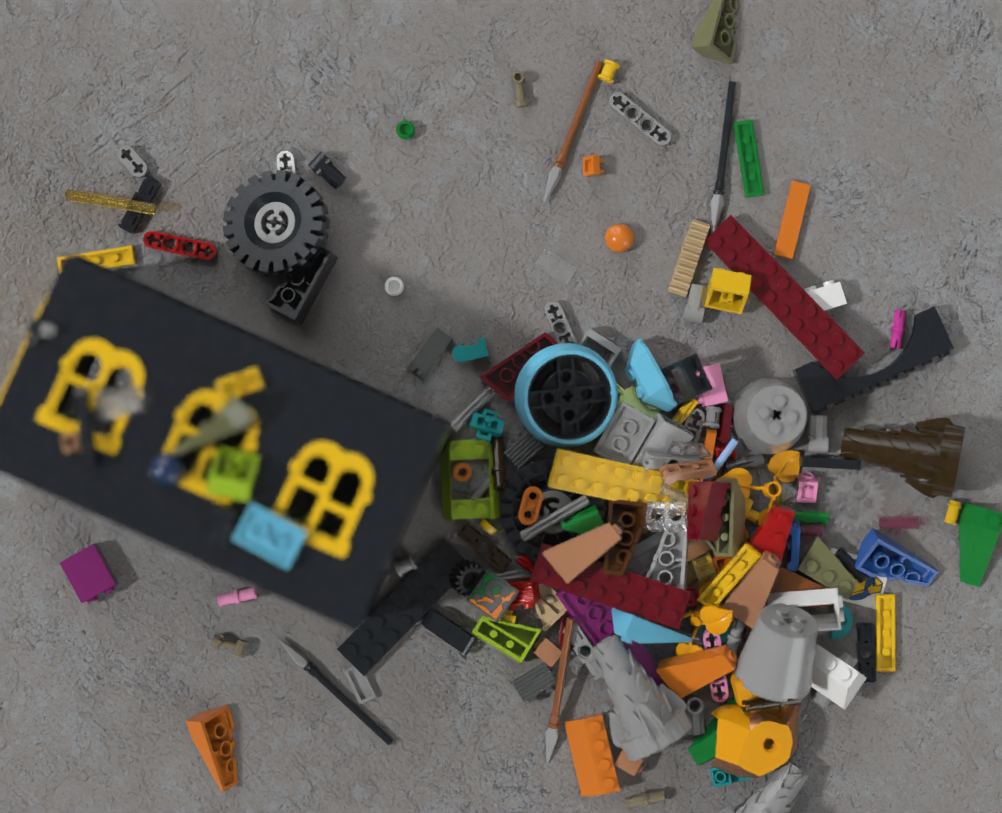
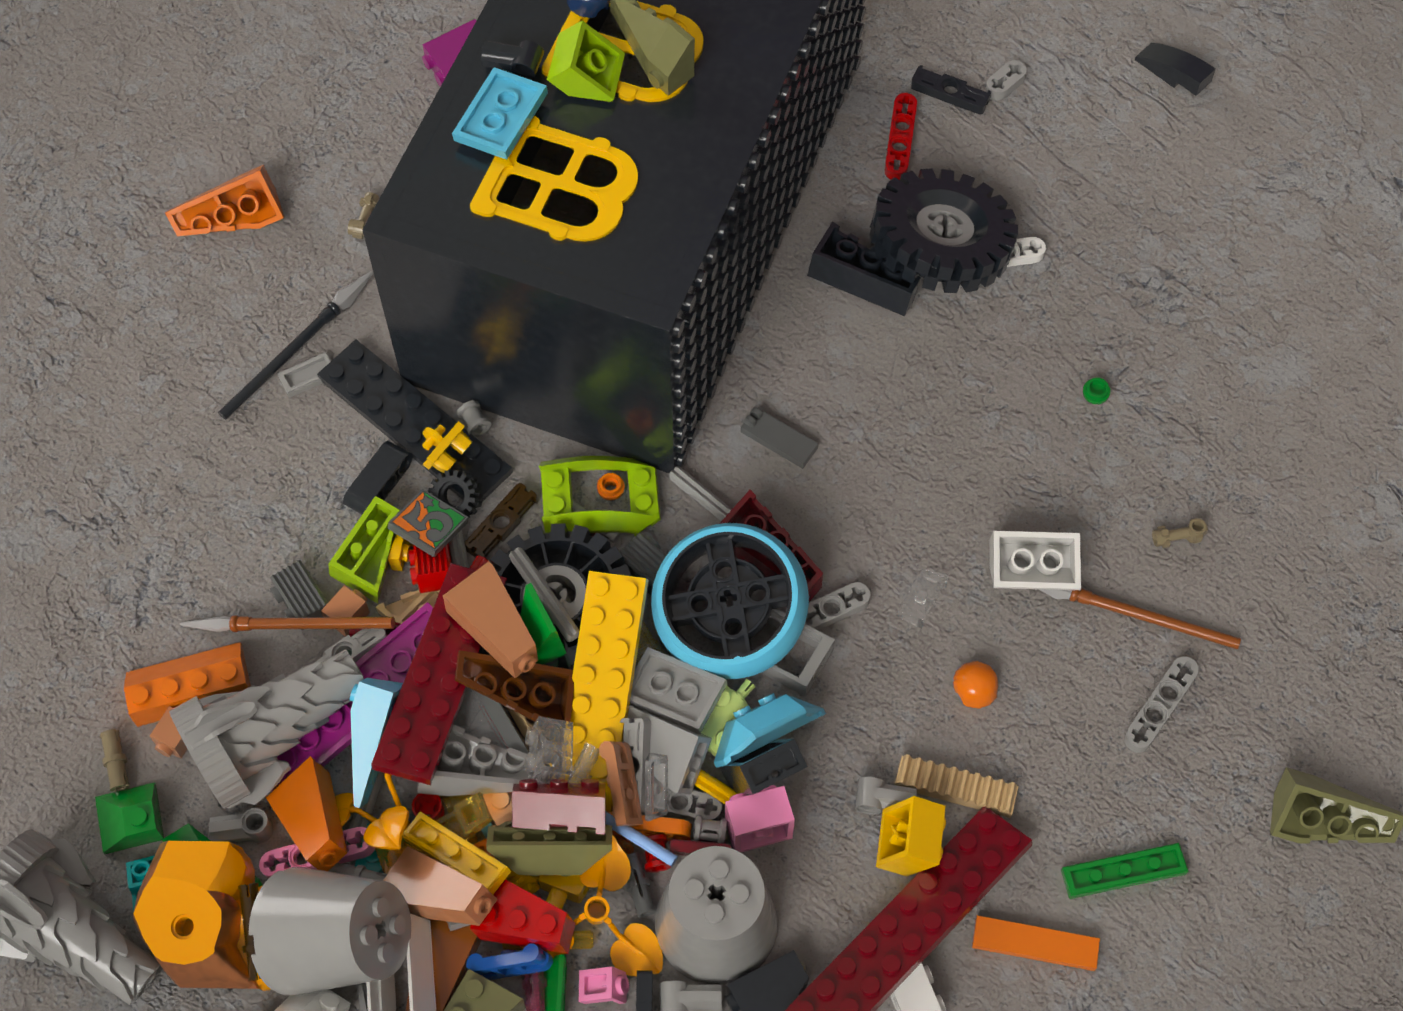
camera: 85 degrees right, 25 degrees down
(108, 258) = (874, 57): yellow tile -> none
(113, 202) = (949, 55): clear yellow axle -> none
(130, 33) = (1176, 67): none -> black slope
(239, 384) = (712, 73): yellow slope -> none
(324, 167) = (1028, 292): black piece -> none
(394, 286) = (871, 387): white plate -> none
(431, 587) = (455, 438): none -> yellow hips
(469, 353) = (784, 488): teal leg -> none
(486, 424) = (683, 508): teal piece -> none
(488, 526) = (530, 520): yellow tile -> none
(498, 471) = (614, 523): dark brown pin -> none
(531, 505) = (564, 557): orange plate -> none
(539, 189) = (1035, 560): none -> white slope
(591, 165) = (1080, 636): orange tile -> none
(608, 71) = (1227, 654): yellow bush -> none
(682, 787) = (129, 818): none -> green slope
(717, 201) = (1049, 825): black piece -> none

